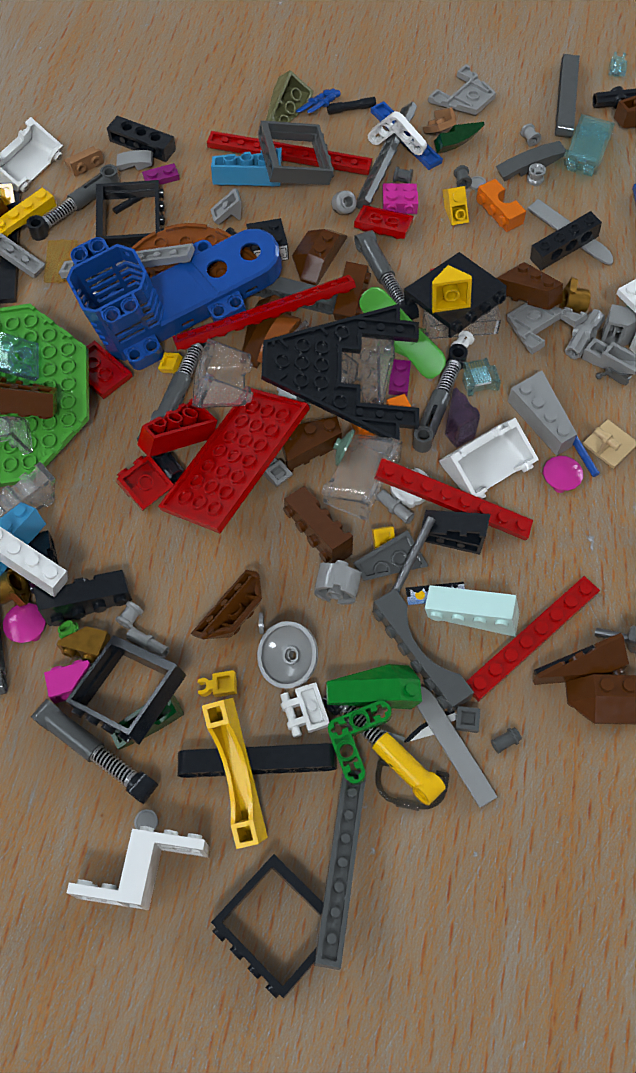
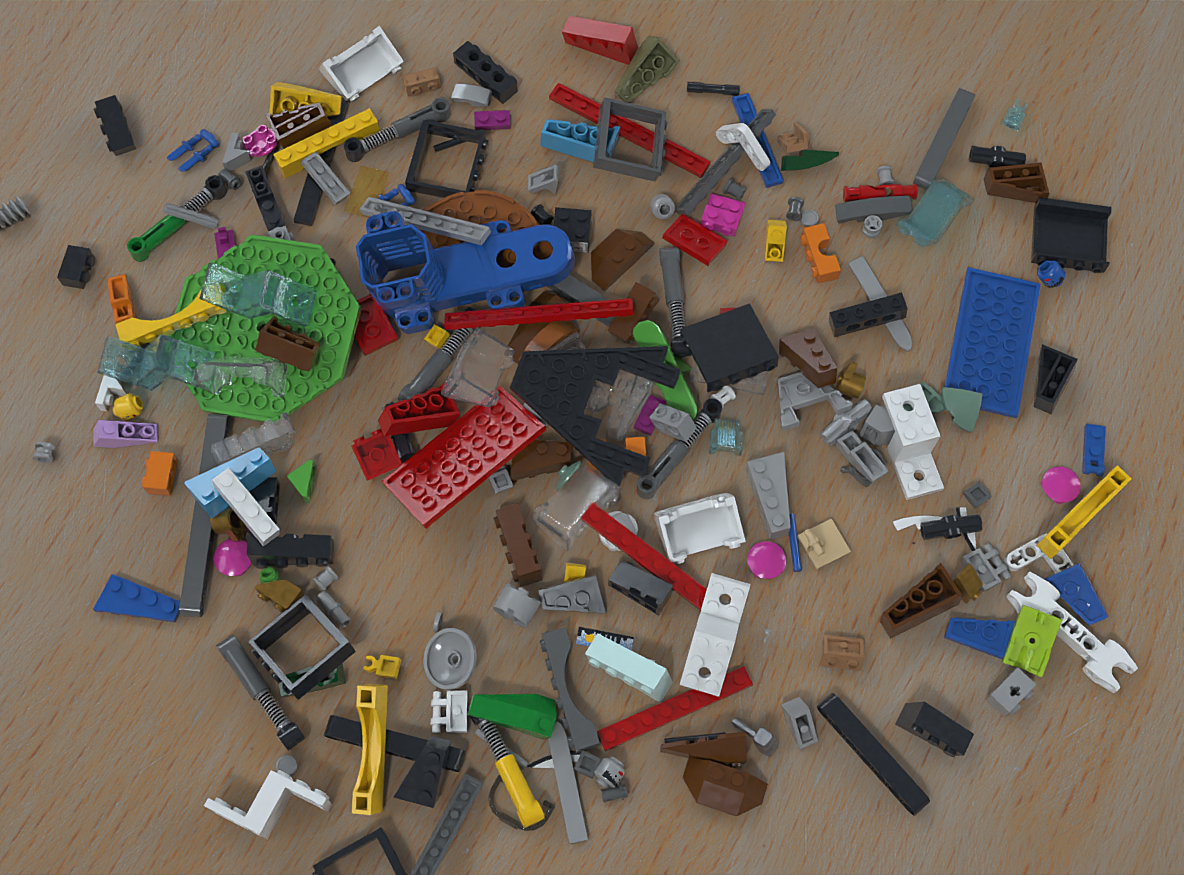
camera: 15 degrees right, 5 degrees up
(63, 680) = (252, 621): dark pink slope -> none
(75, 527) = (303, 479): none -> bright green slope
(232, 609) = (414, 602): reddish brown wedge -> none
(240, 87) = (601, 38): none -> red wedge
(303, 782) = (426, 776): none -> black wedge
(320, 100) = (697, 69): blue piece -> none
(346, 737) = (475, 748): green beam -> none
(395, 506) = (596, 546): light grey pin -> none
(413, 554) = (593, 600): flat silver bar -> none
(427, 373) = (673, 422): none -> light grey brick
(451, 290) = (716, 350): yellow slope -> none
(461, 420) = (686, 479): clear purple slope -> none
(469, 98) = (841, 113): light grey wing -> none
(494, 719) = (609, 772): none -> light grey head
(520, 147) = (867, 192): none -> red piece
(548, 551) = (715, 634): none -> white bracket

